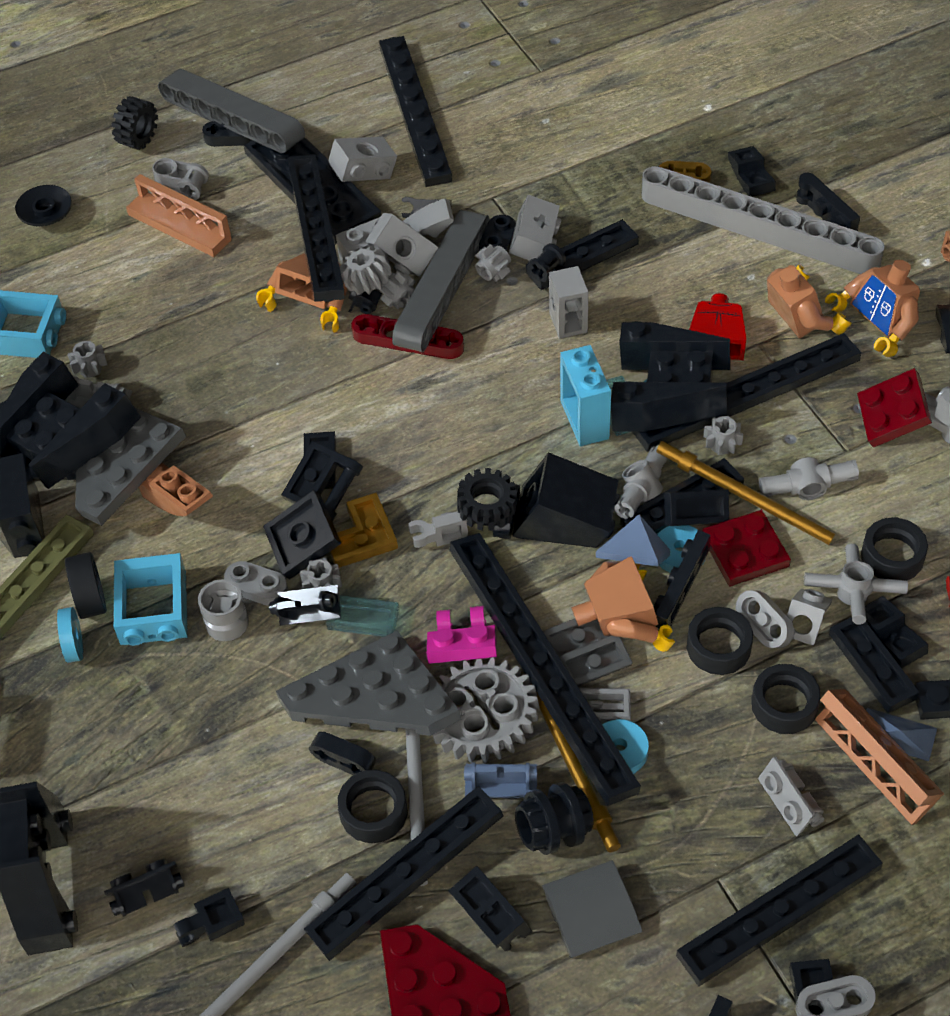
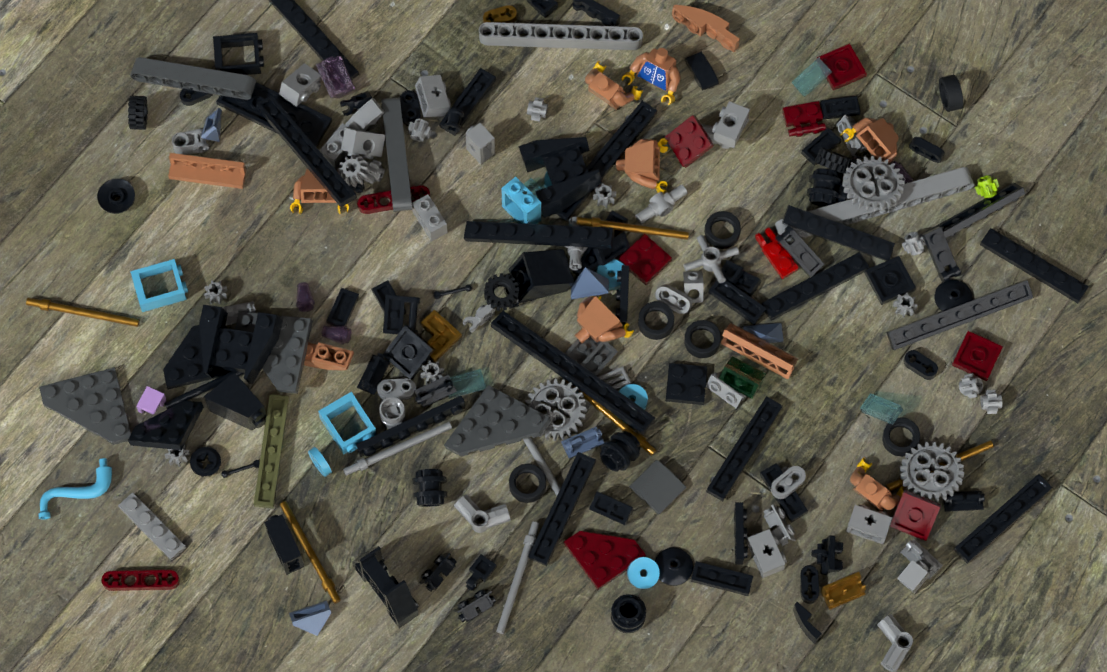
camera: 30 degrees left, 15 degrees up
(85, 585) = (311, 431): black tyre -> none
(138, 668) = (363, 464): none -> light grey bar
(185, 972) = (481, 600): none -> black hinge
(201, 411) = (305, 300): none -> clear purple cone
(209, 744) = (429, 487): none -> black piece
(218, 170) = (212, 126): none -> sand blue slope
(218, 474) = (339, 334): none -> clear purple cone
(236, 547) = (373, 373): none -> black hinge
(241, 641) = (412, 425): none -> black plate
(248, 446) = (342, 308): none -> black tile
(281, 834) = (471, 512): none -> light grey piece
(311, 91) = (238, 40): none -> black window
(341, 753) = (497, 463): black beam -> none
(396, 479) = (437, 294): none -> black hinge
(414, 165) = (335, 77): none -> clear purple hinge
(442, 372) = (429, 217): none -> light grey brick
(462, 643) = (526, 379): dark pink plate -> none
(595, 447) = (539, 234): none -> black plate
(678, 293) = (537, 109): none -> light grey gear
(722, 320) = (571, 122): red torso -> none
(725, 760) = (686, 384): none -> black plate
(806, 411) = (643, 163): none -> nougat torso
(828, 785) = (742, 377): none -> clear green brick

